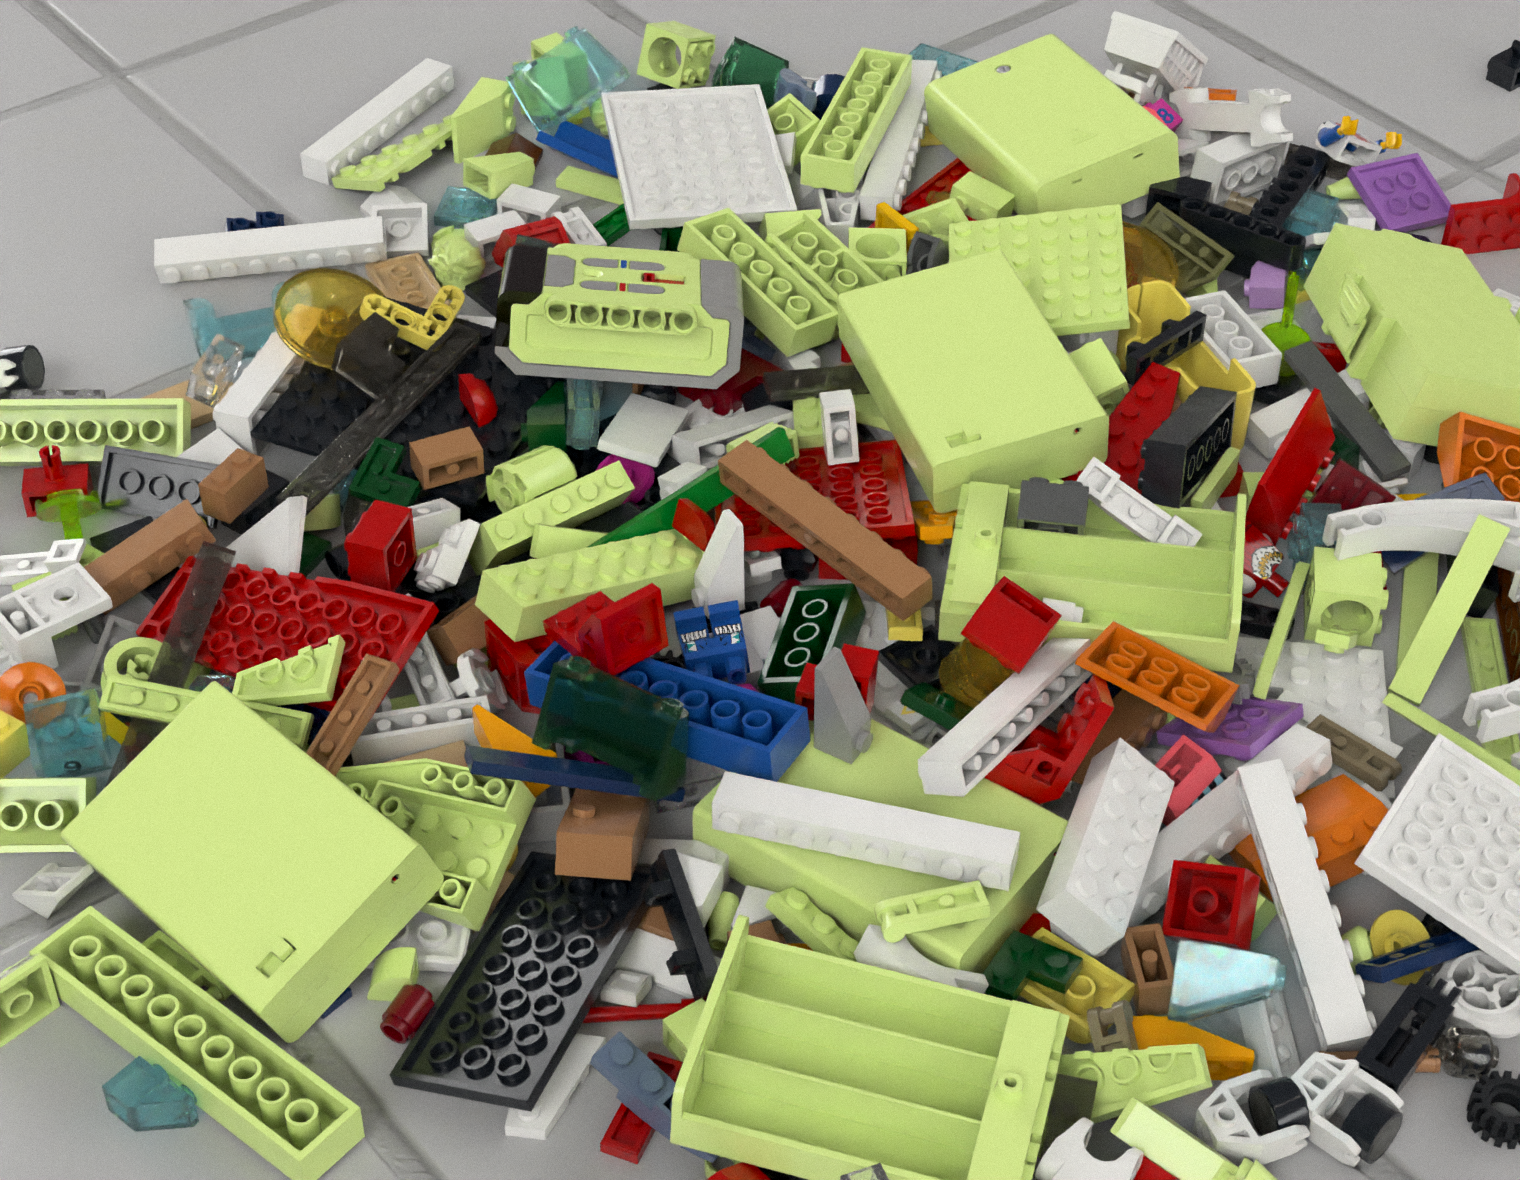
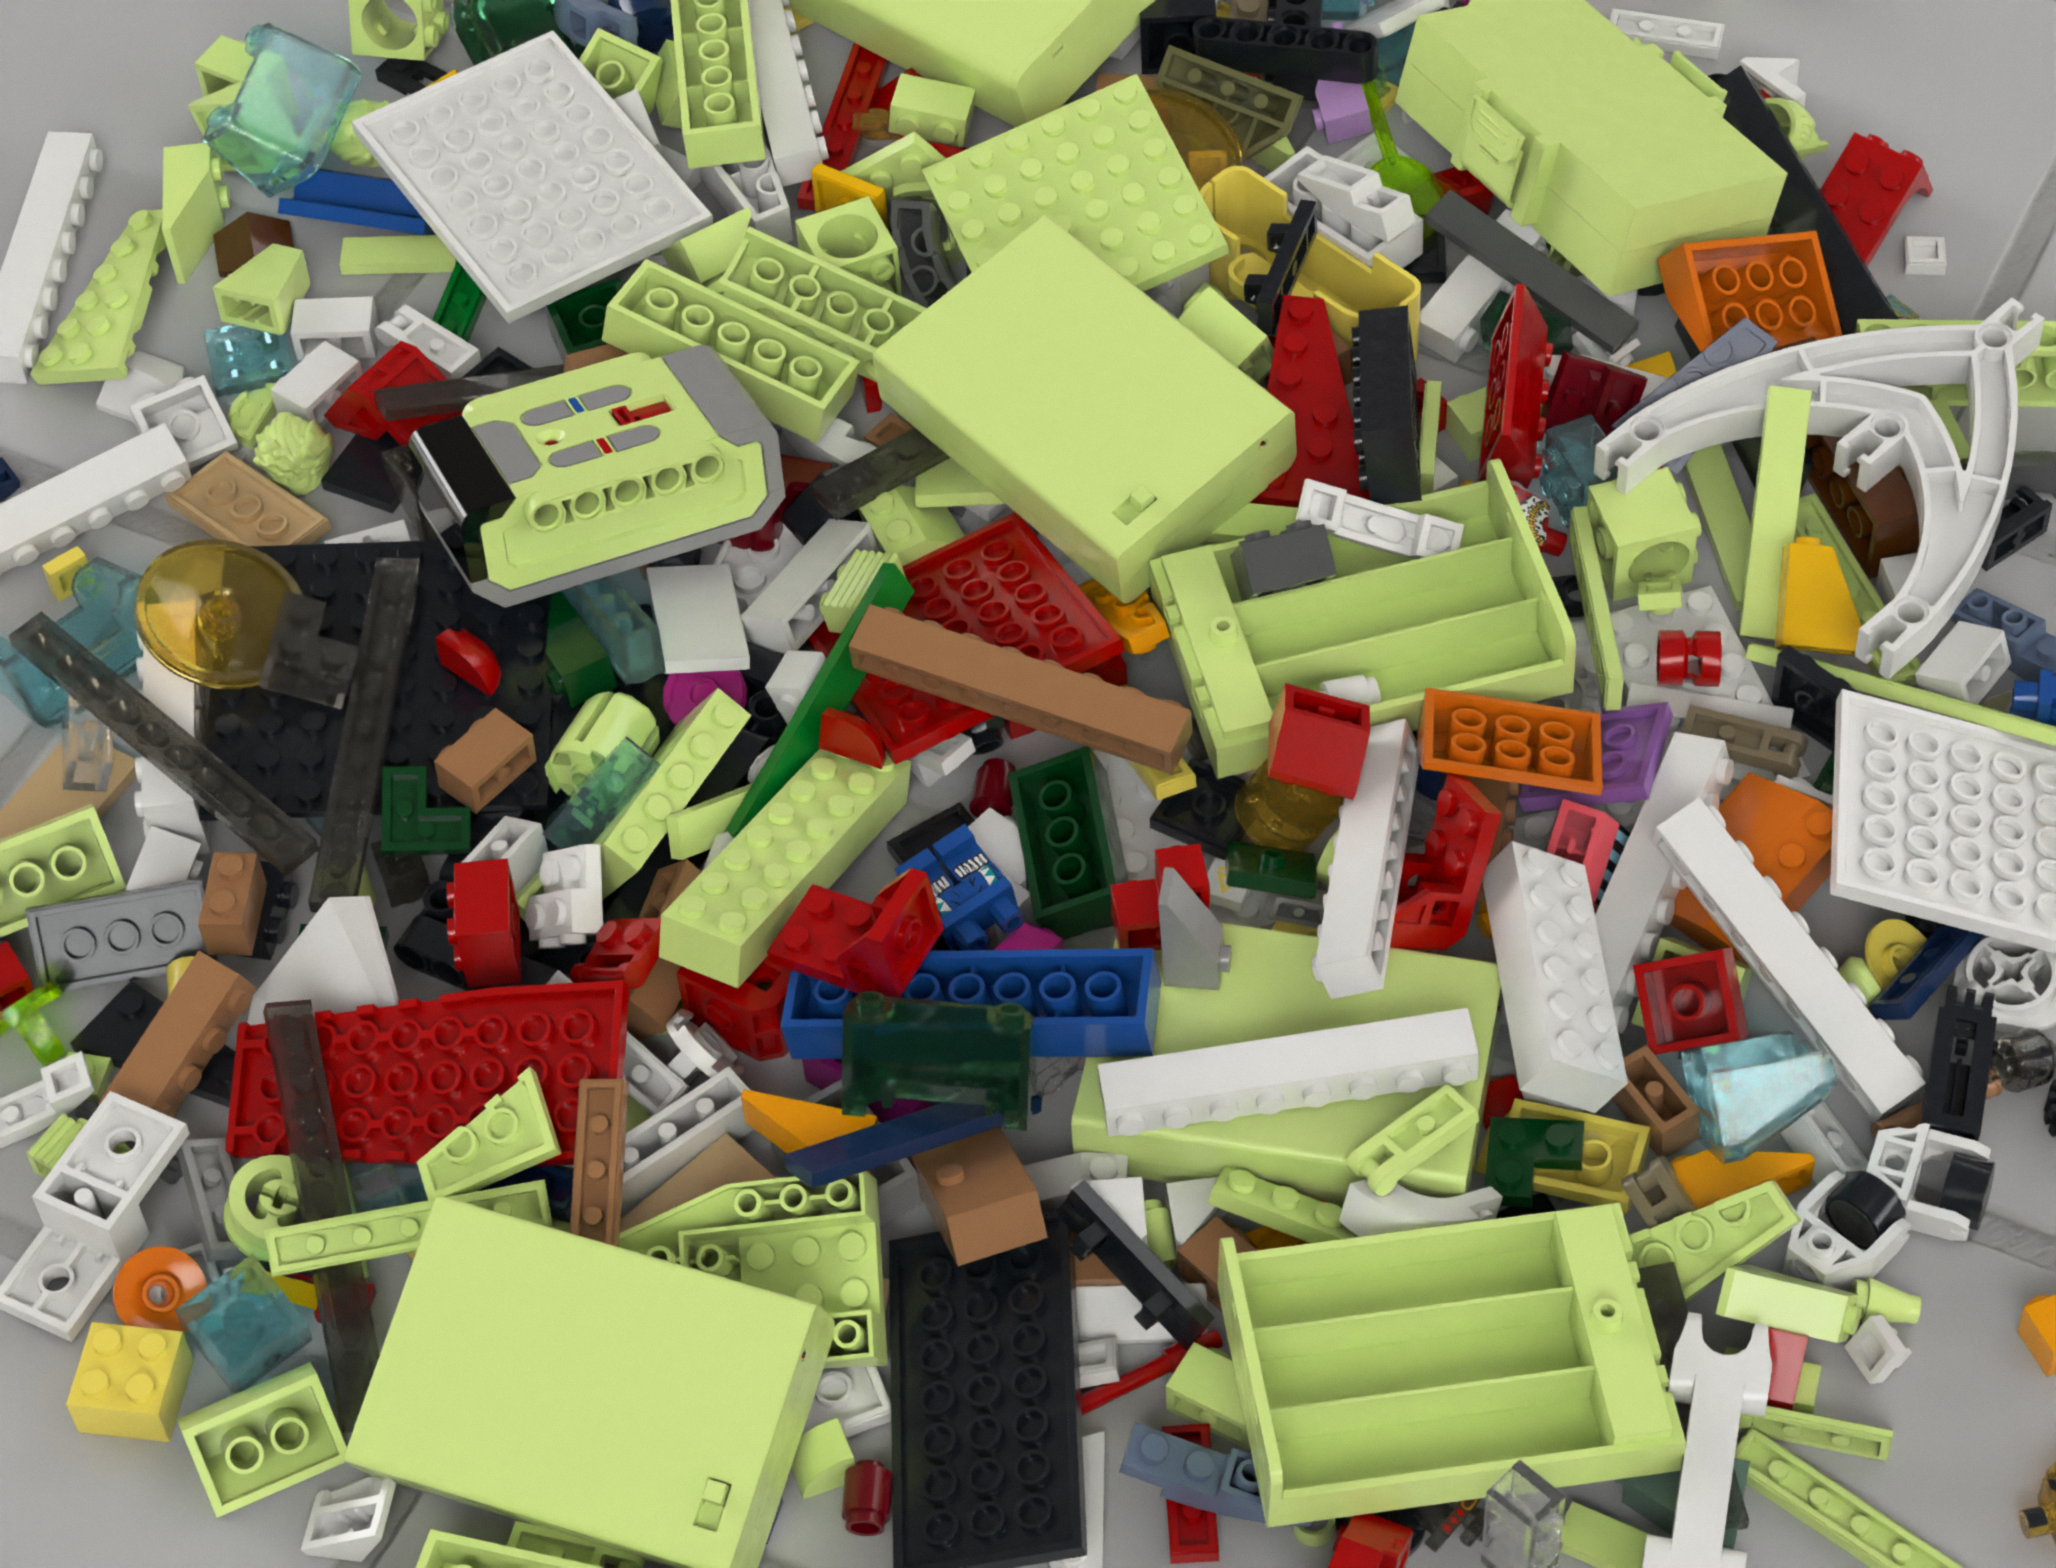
camera: 20 degrees left, 10 degrees up
(250, 380) = (164, 744): none -> clear smoke plate
(270, 279) = (61, 571): none -> light yellow plate
(419, 325) = (330, 576): light yellow beam -> none
(458, 599) = (623, 943): none -> red plate
(514, 493) = (600, 796): none -> clear light blue slope
(722, 566) = (915, 786): white slope -> none
(839, 427) = (949, 529): white brick -> none
(1241, 325) = (1359, 197): none -> white slope
(1323, 680) = (1673, 653): none -> red wheel
(1414, 731) = (1810, 692): none -> black plate
(1452, 678) = (1814, 601): none -> yellow slope

